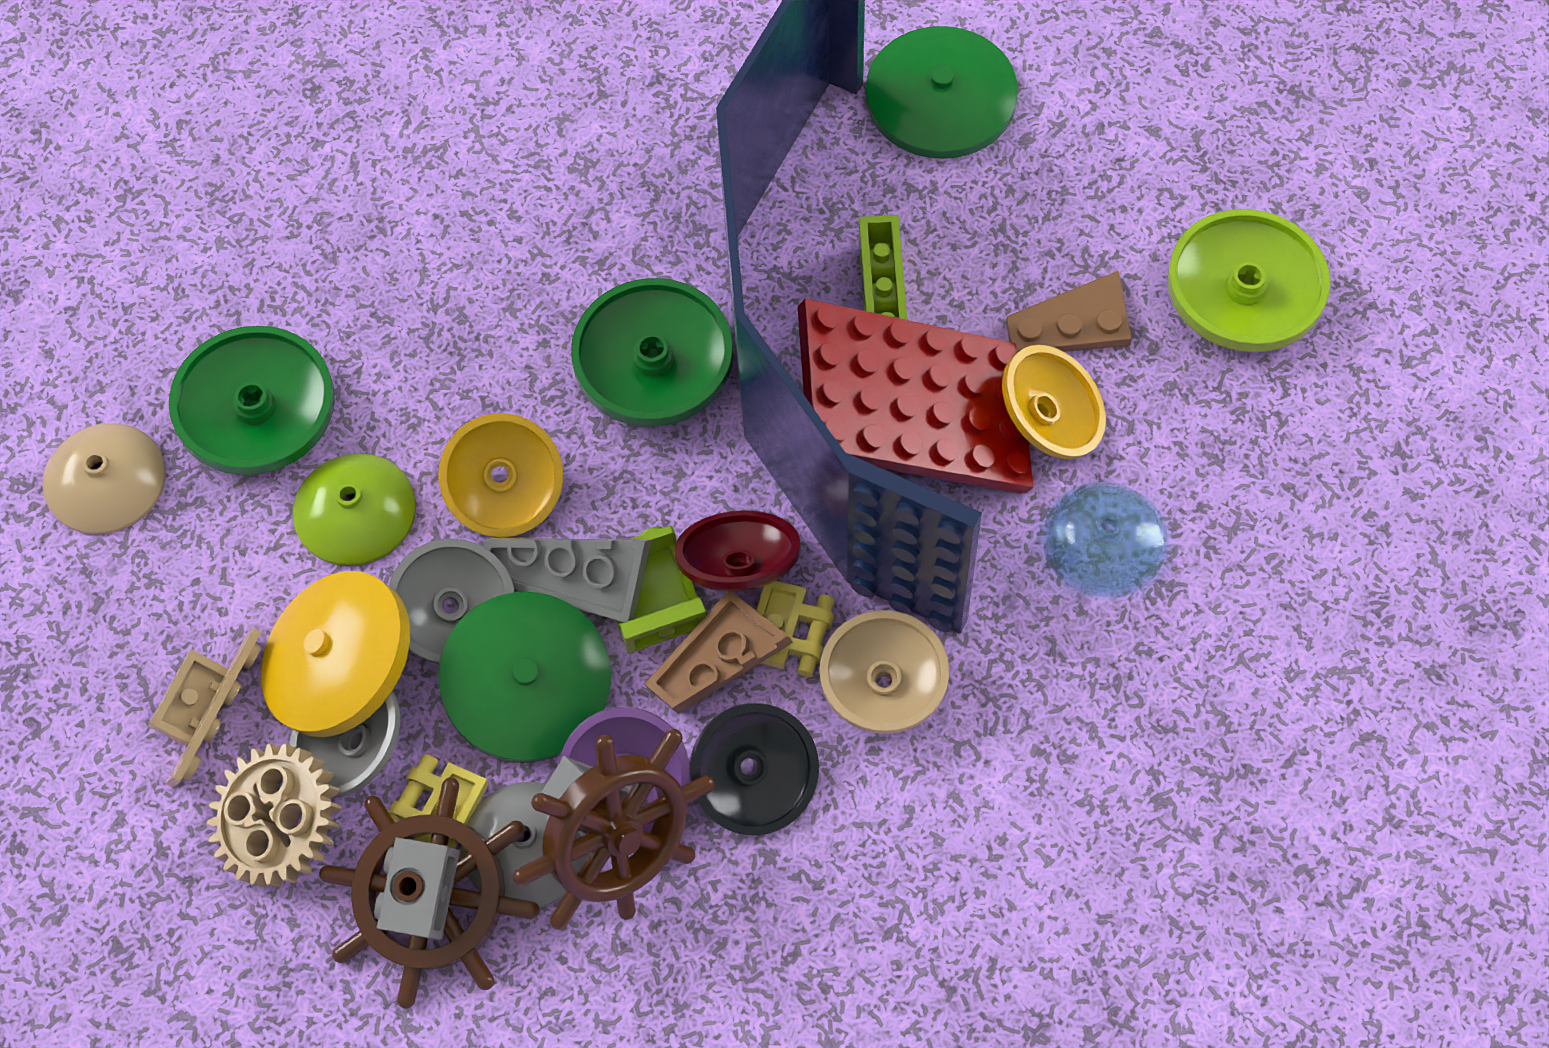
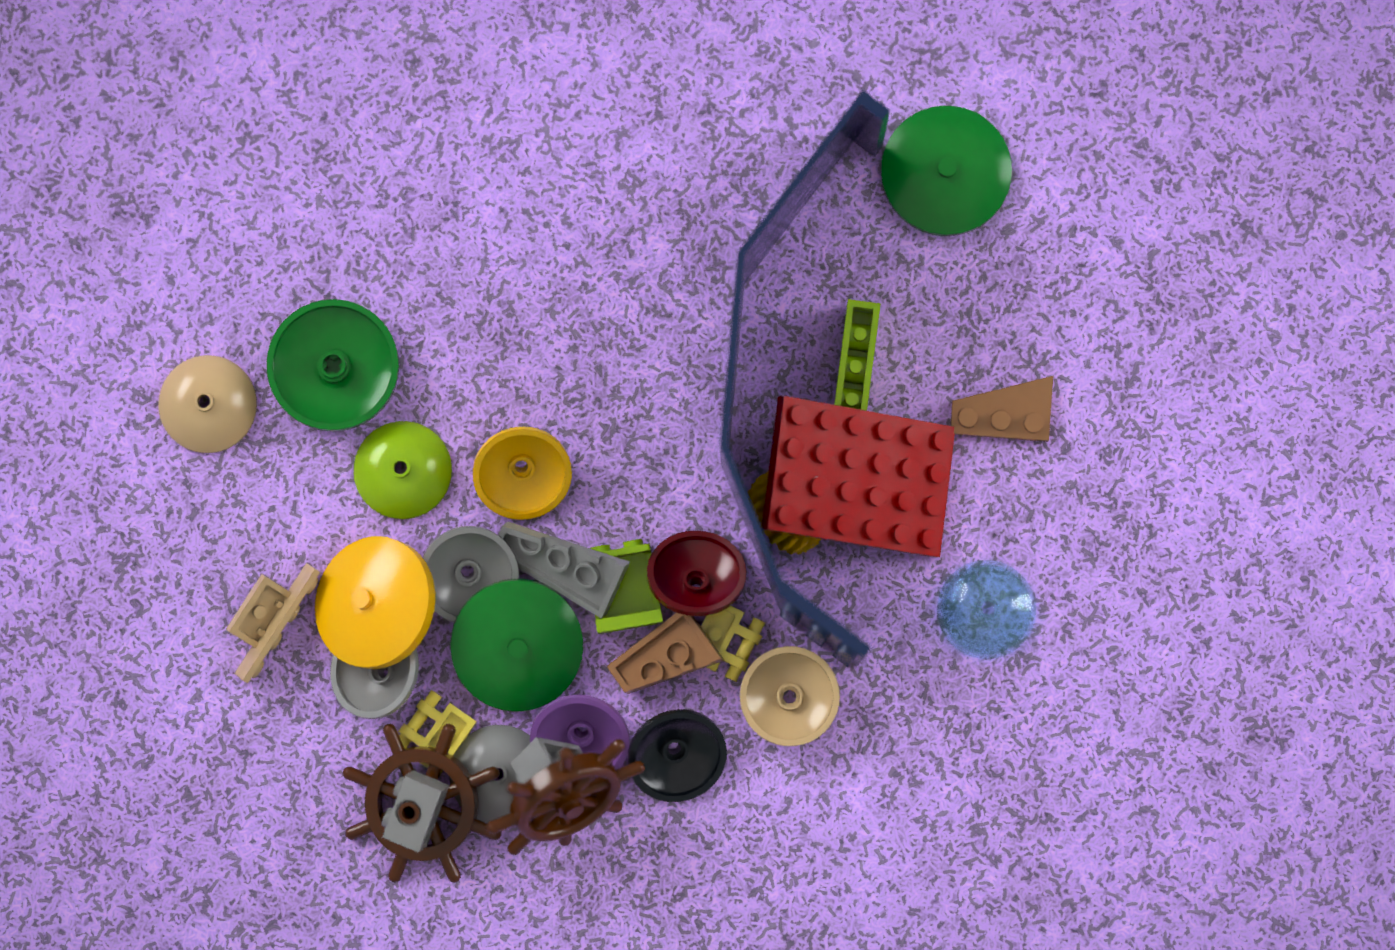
camera: 15 degrees right, 20 degrees up
(244, 837) = (338, 710): tan gear -> none
(652, 352) = (659, 383): green dish -> none
(1053, 402) = (983, 493): yellow dish -> none
(1248, 280) = (1154, 410): lime dish -> none

